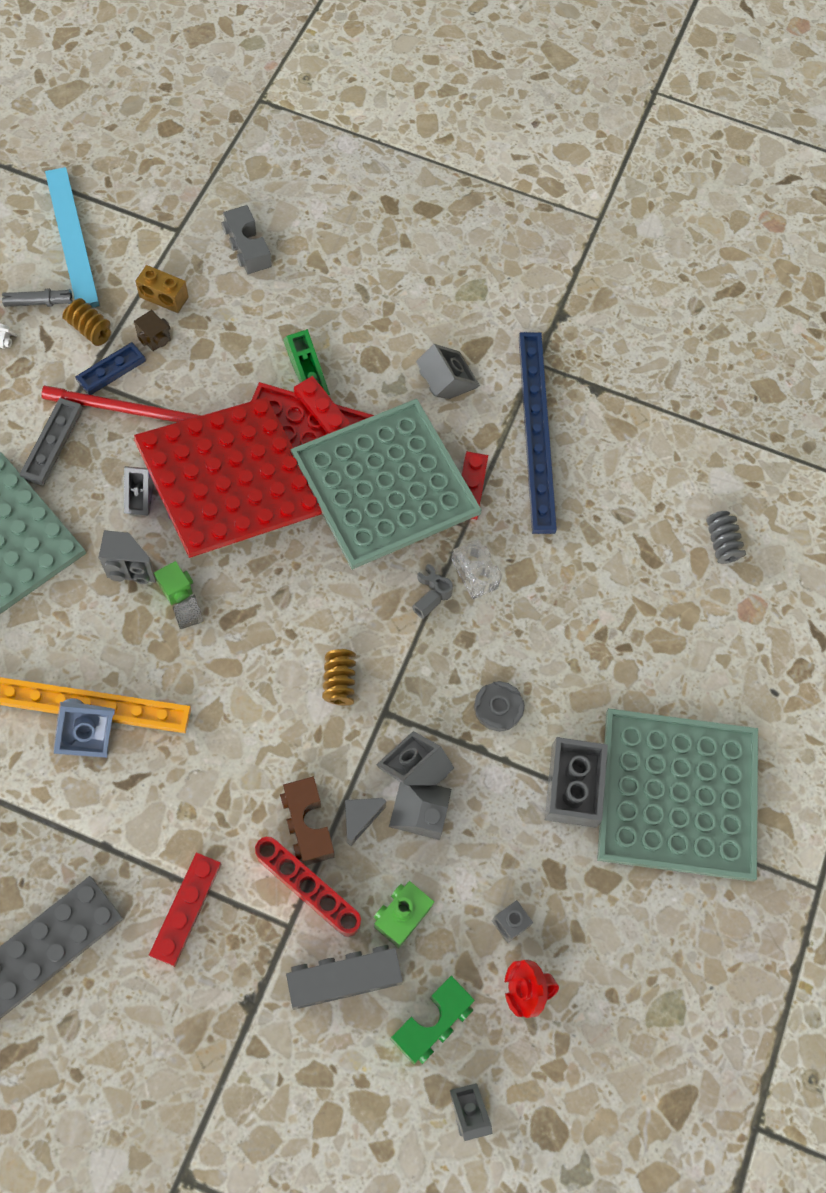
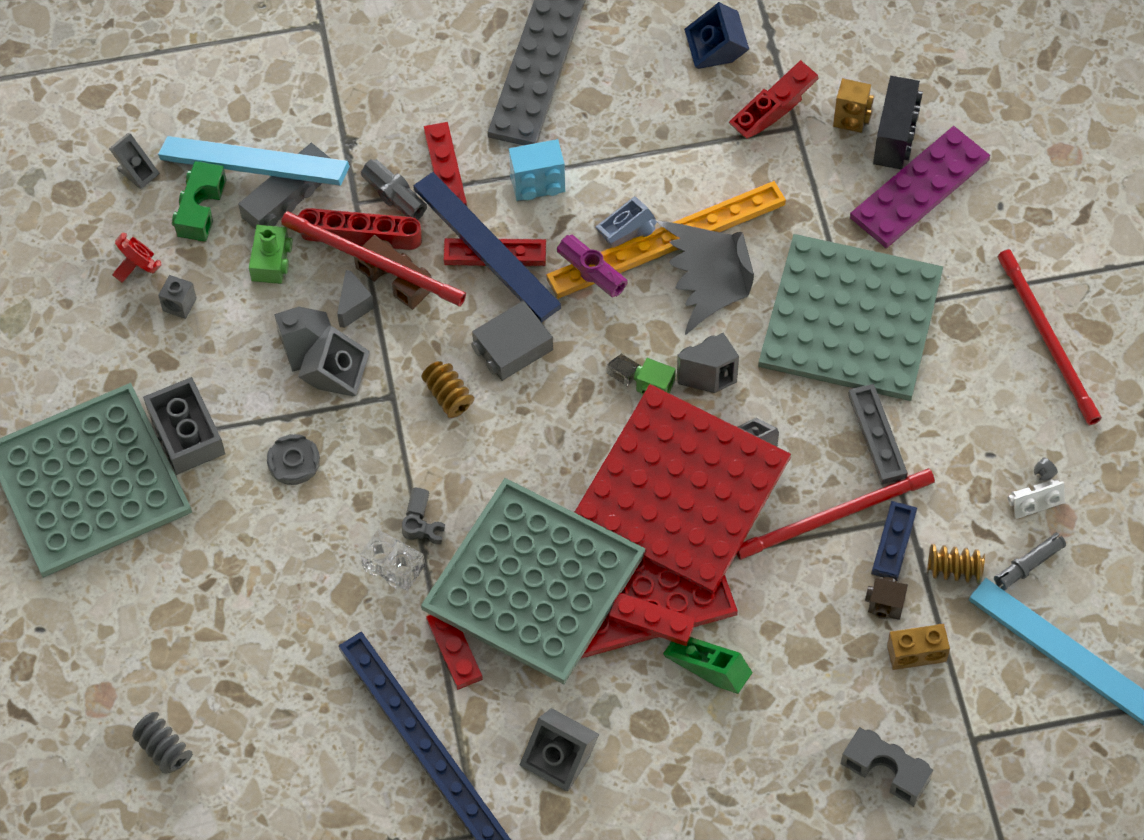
camera: 155 degrees right, 5 degrees down
(48, 649) = (716, 268): none -> dark grey piece
(114, 829) = (537, 170): none -> medium azure brick
(146, 716) = (602, 274): none -> magenta piece
(209, 784) = (528, 251): none -> red plate
(214, 791) = (487, 246): none -> dark blue tile
(249, 910) = (393, 189): none -> dark grey piece
(257, 689) = (512, 341): none -> dark grey brick
(360, 906) = (303, 226): none -> red piece
(360, 1025) = (255, 160): none -> medium azure tile

